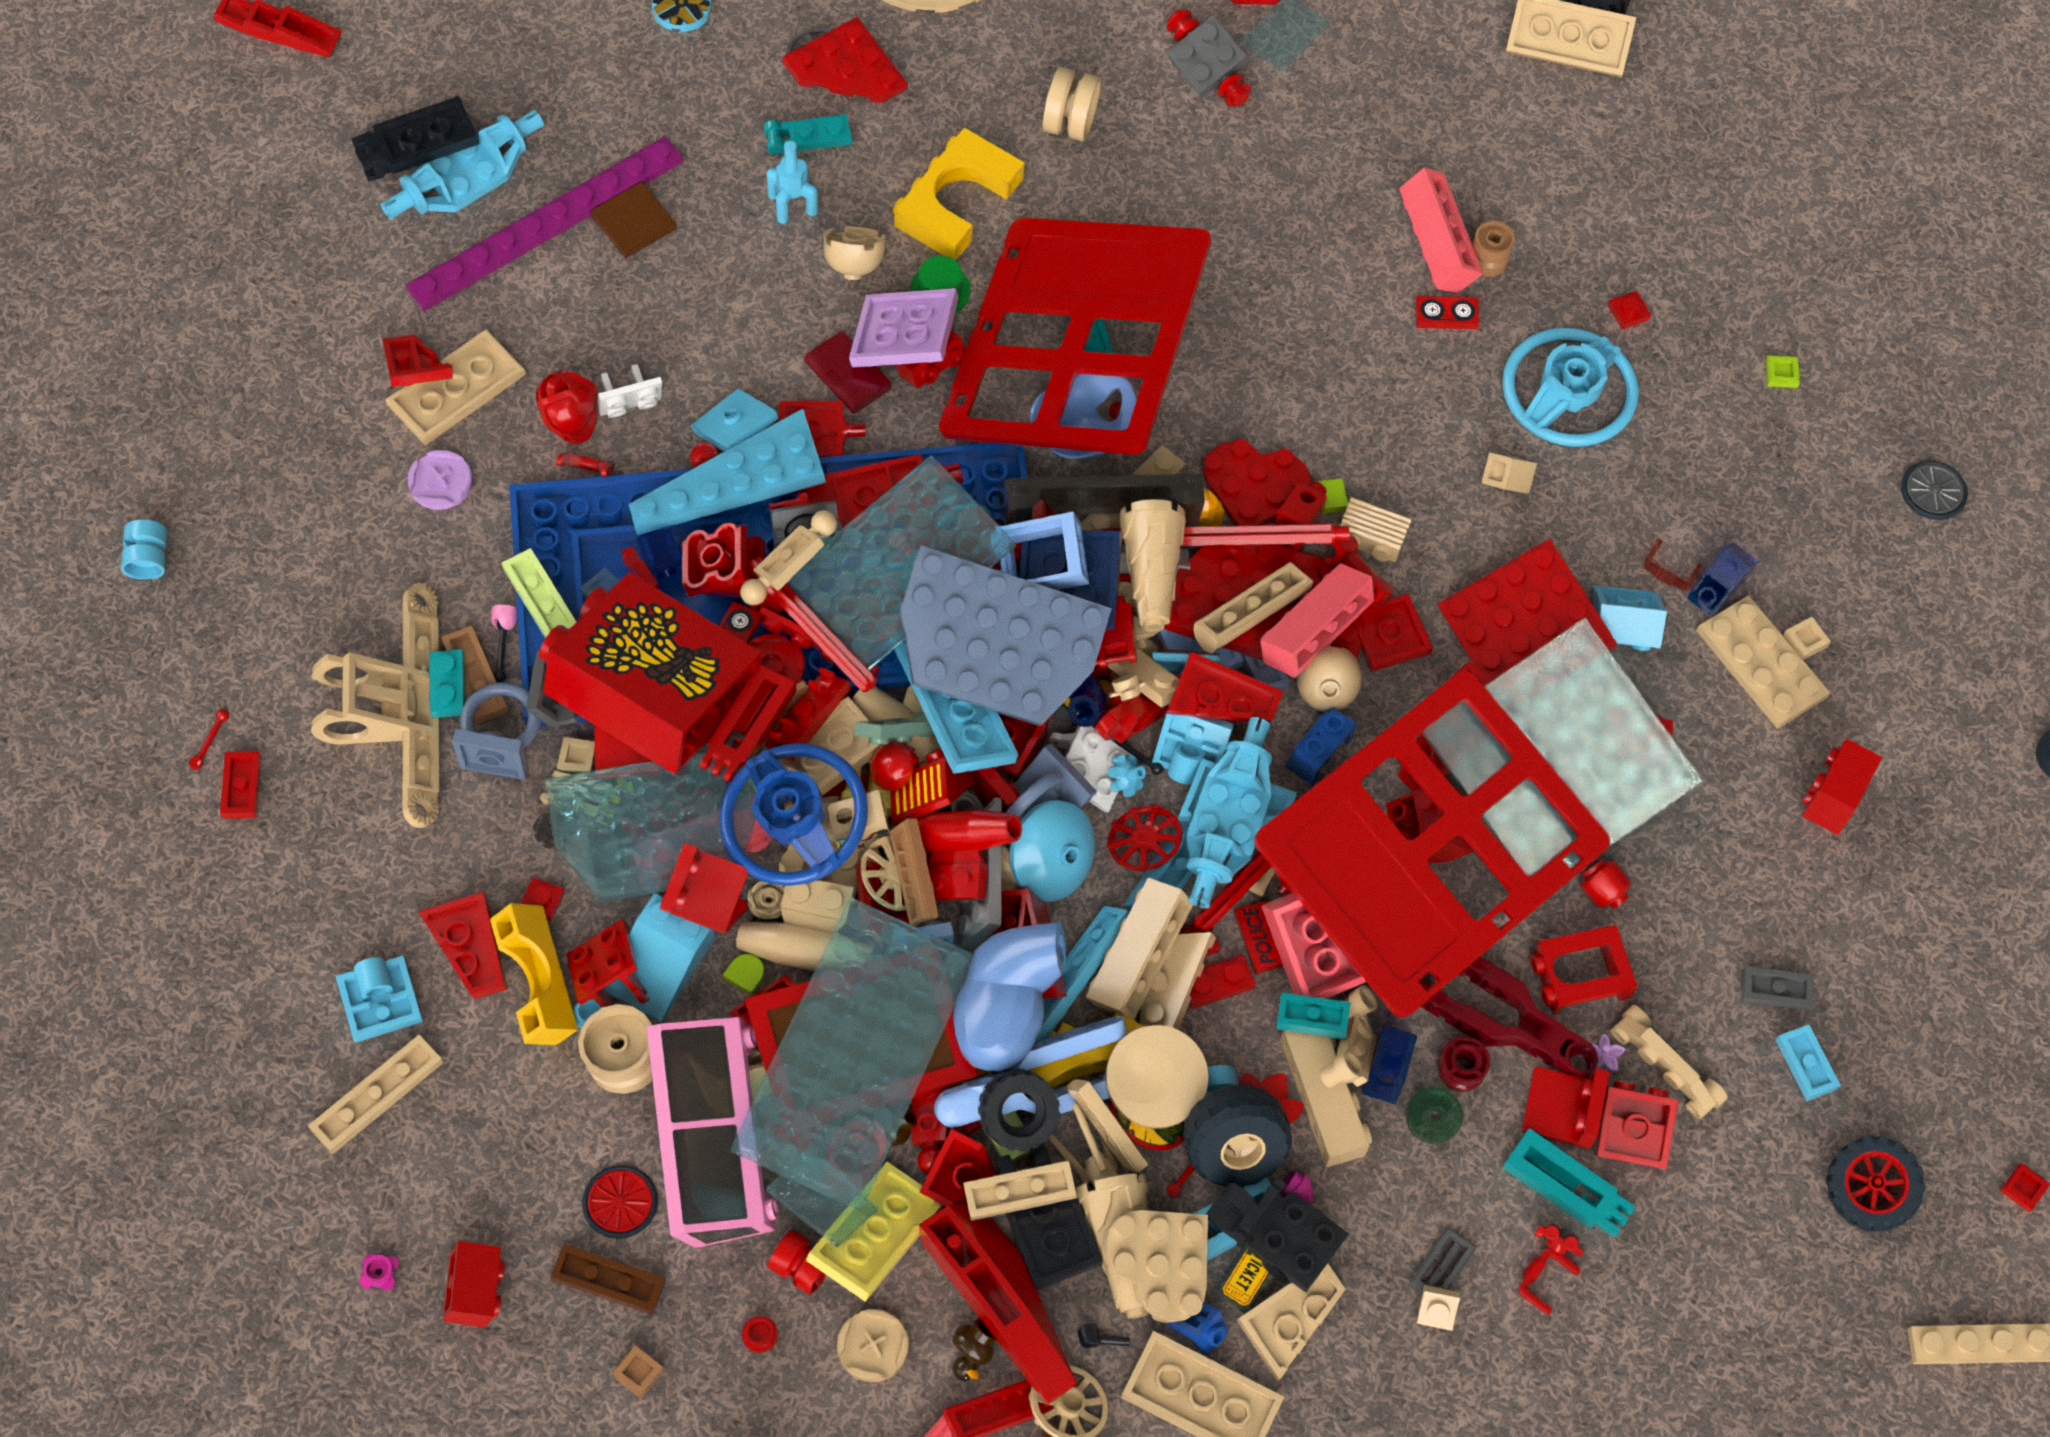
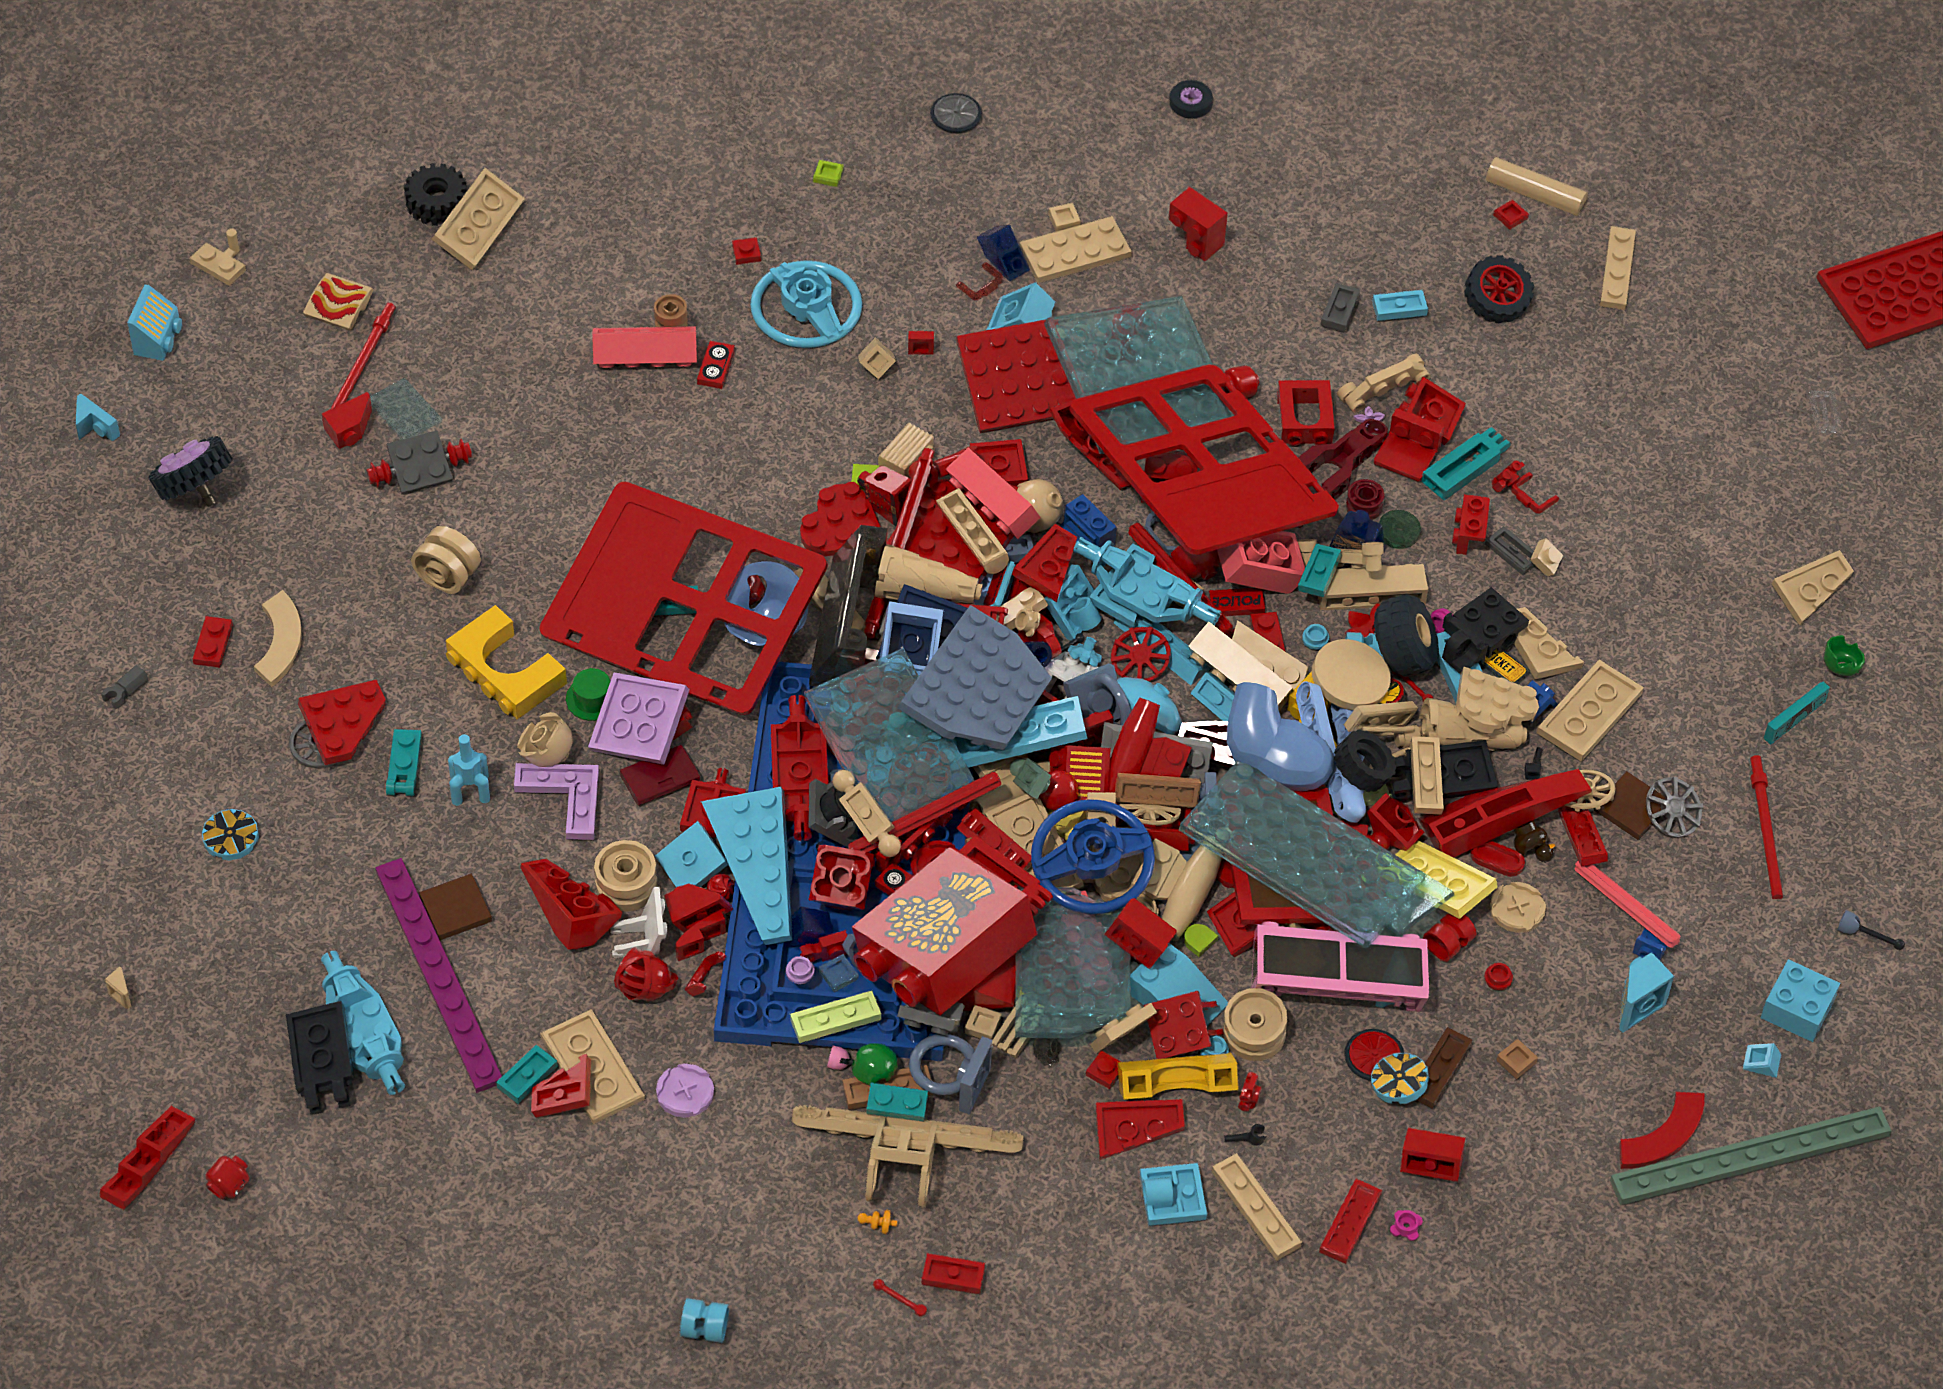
camera: 75 degrees left, 10 degrees down
(259, 93) = (227, 1177): none -> red head
(300, 696) = (875, 1220): none -> light orange hair
(372, 1204) = (1350, 1221): none -> red plate
(431, 327) = (526, 1074): none -> teal plate
(475, 1067) = (1250, 1136): none -> black hand
(493, 651) = (874, 1063): none -> green hair
(527, 1059) = (1250, 1092): none -> red piece
(576, 1230) = (1400, 1078): none -> tile
(581, 899) = (1118, 1028): none -> tan plate
(597, 550) = (800, 970): none -> lavender plate
(633, 446) = (693, 939): none -> red slope
(652, 320) = (570, 907): none -> red wedge
(669, 433) = (692, 903): none -> red slope
(696, 361) = (626, 874): none -> tan wheel
(815, 300) = (577, 780): none -> lavender plate
(942, 1312) = (1498, 858): none -> red tile
(1230, 1038) = (1315, 636): none -> medium azure plate
(1460, 1198) = (1472, 522): none -> red bracket
(1548, 514) = (921, 342): none -> red plate

